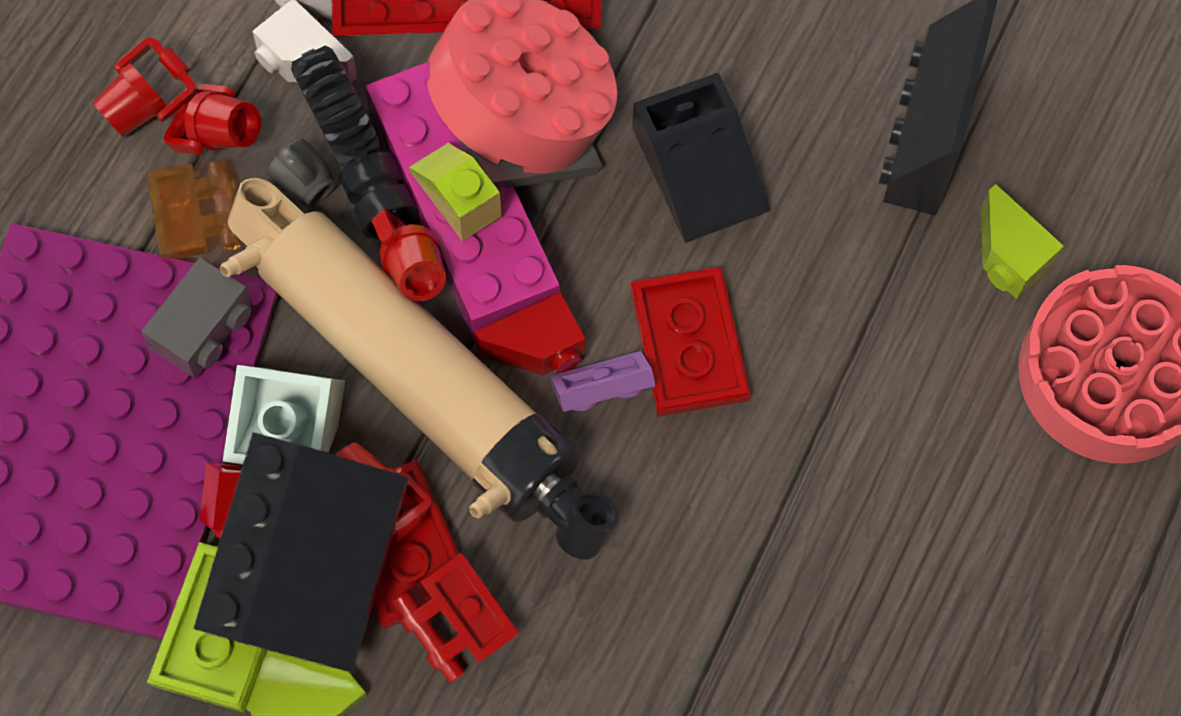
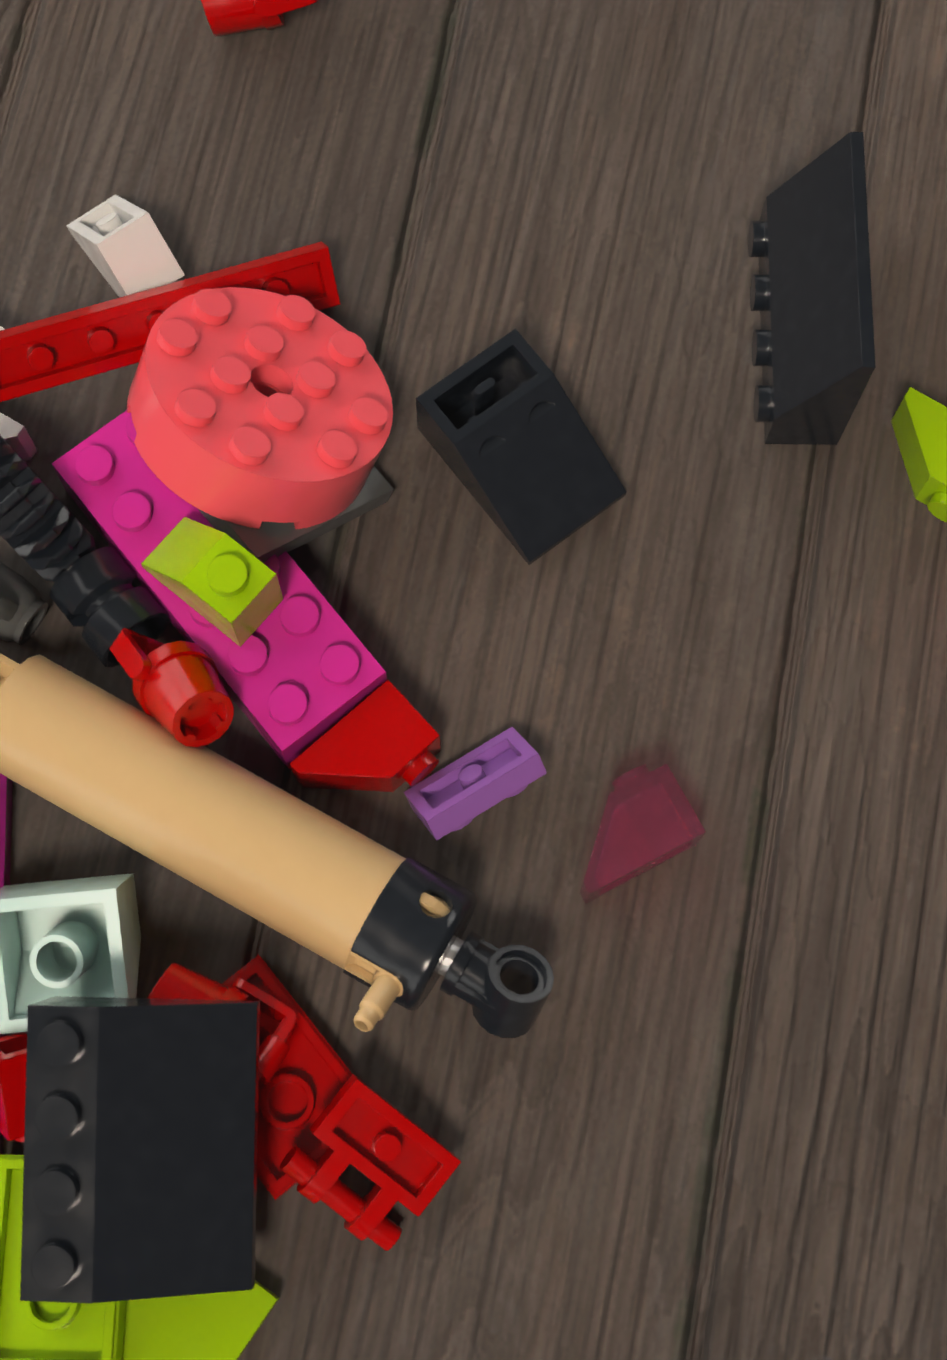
camera: 15 degrees left, 5 degrees up
(690, 341) = (571, 695): red tile -> none
(709, 444) = (639, 829): none -> clear pink slope

